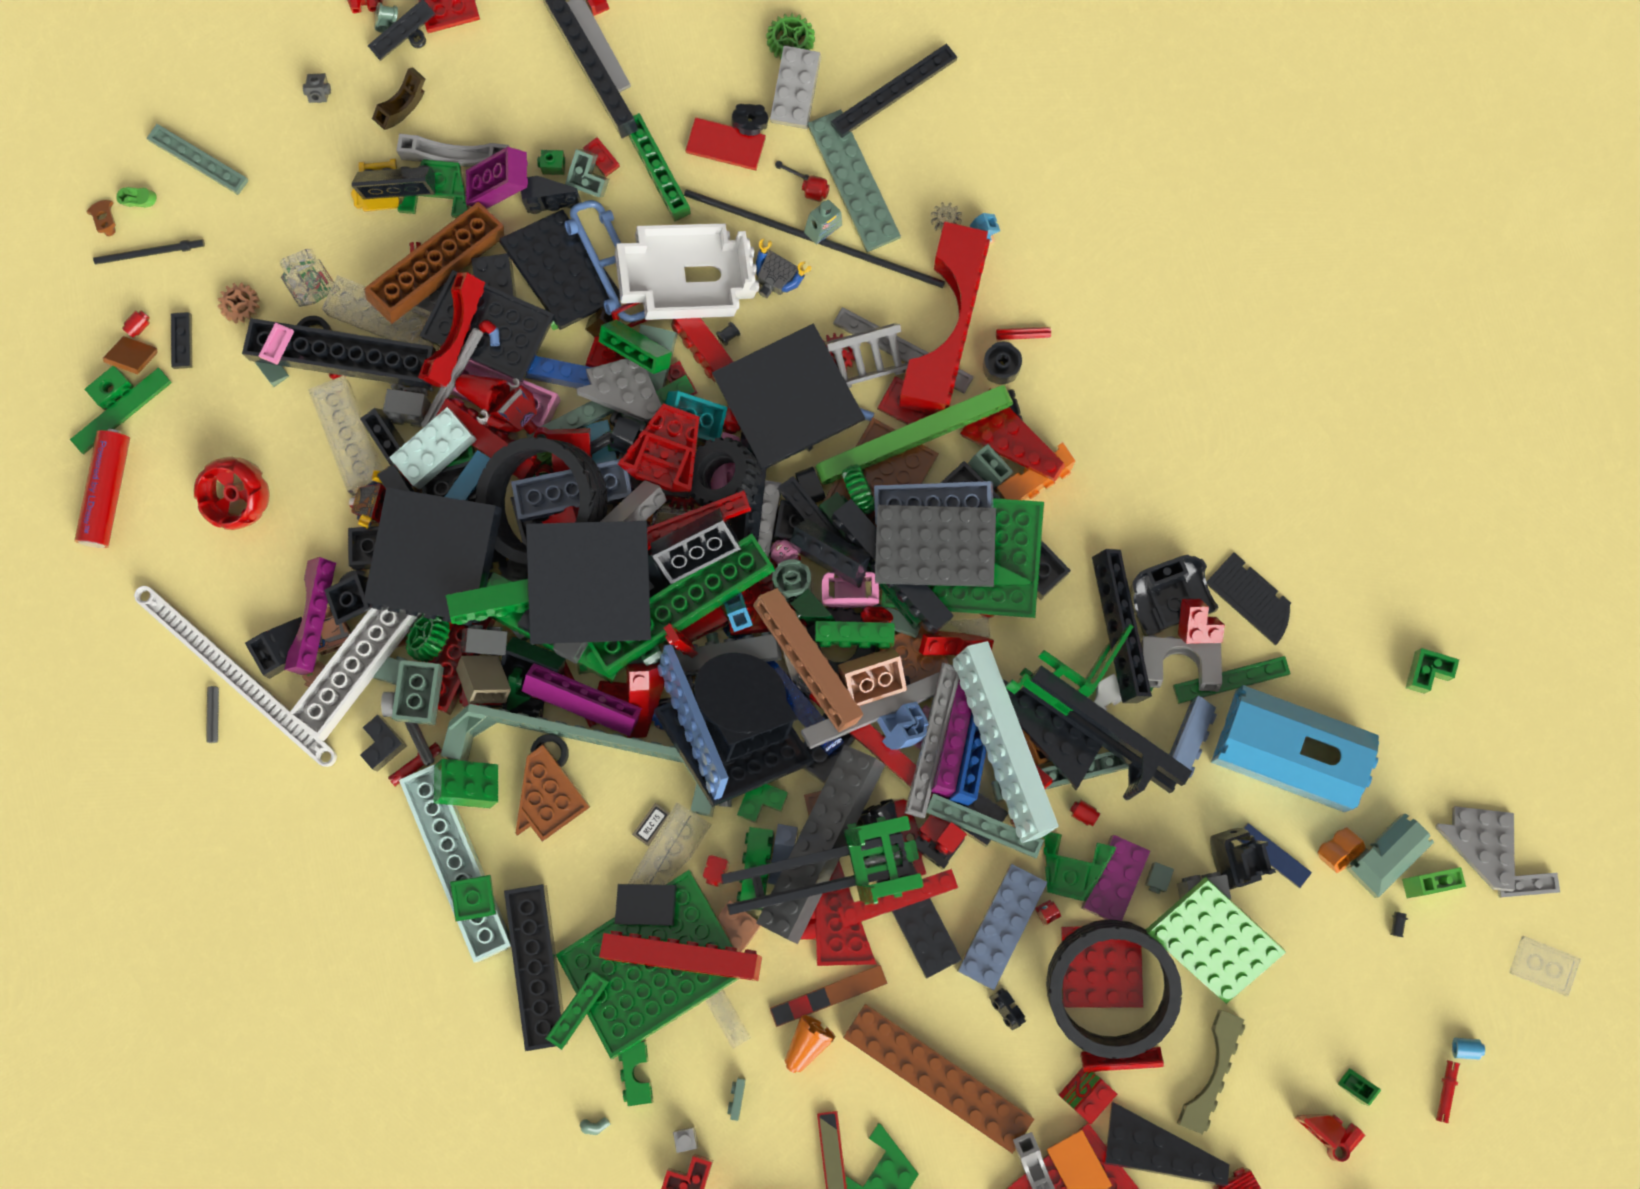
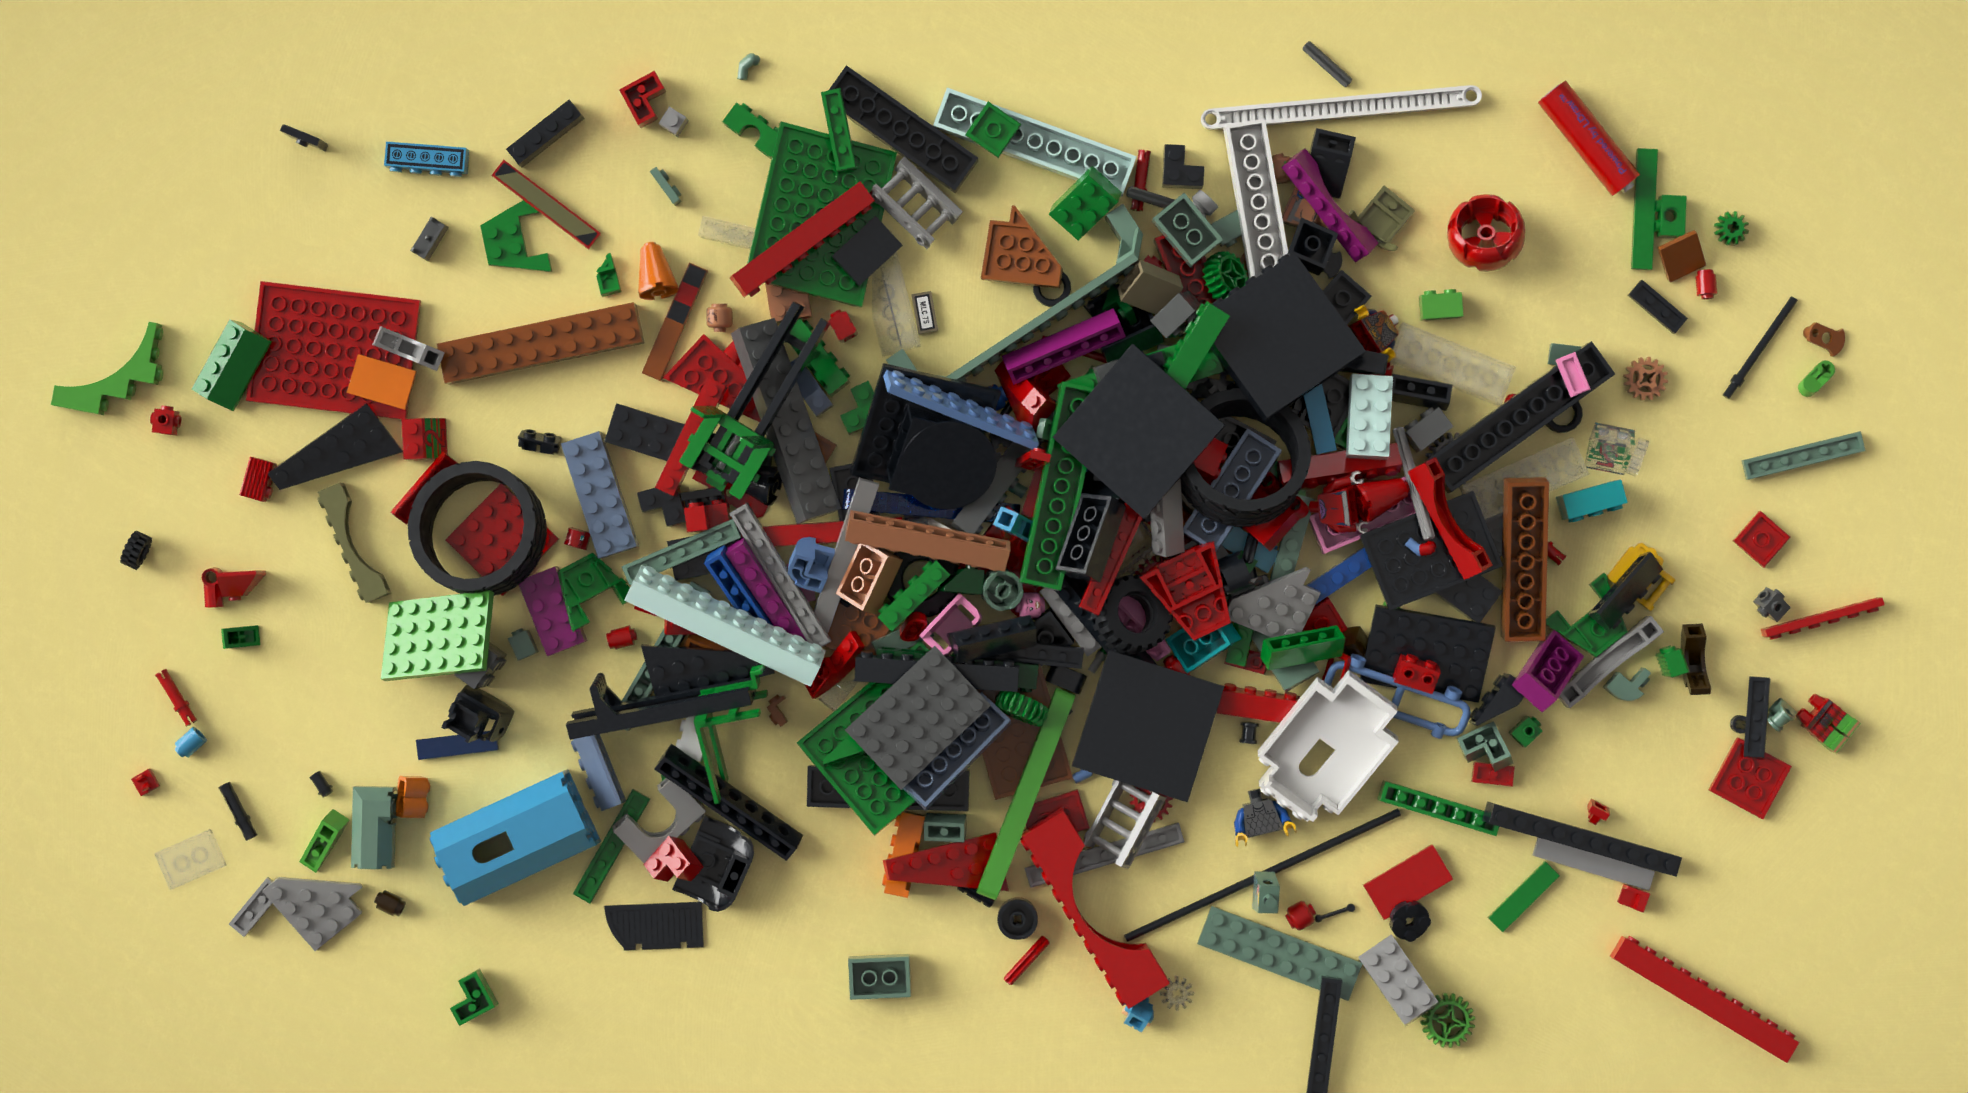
camera: 135 degrees right, 10 degrees up
(81, 349) = (1734, 236): none -> green gear
(279, 134) = (1761, 539): none -> red plate
(285, 573) = (1384, 217): none -> olive piece
(291, 48) = (1831, 616): none -> red plate
(313, 478) = (1441, 306): none -> bright green brick
(353, 258) = (1592, 501): none -> teal brick
(415, 112) = (1672, 661): none -> green brick
(461, 126) = (1627, 690): none -> sand green brick
(561, 70) = (1597, 811): none -> red tile
(562, 904) = (932, 194): none -> light grey fence
(580, 260) = (1416, 673): none -> red brick
(663, 66) = (1523, 896): none -> green tile
(778, 477) = (1099, 657): none -> light grey piece
(794, 966) = (719, 317): none -> nougat head
(843, 1076) = (608, 278): none -> green slope
(960, 865) = (672, 506): none -> black brick
(1029, 654) = (776, 715): none -> dark orange bracket
(1132, 414) = (879, 976): none -> sand green brick
(1428, 793) = (389, 903): none -> dark brown brick
(1477, 968) = (238, 811): none -> black pin
(1527, 1053) = (145, 782): none -> red tile

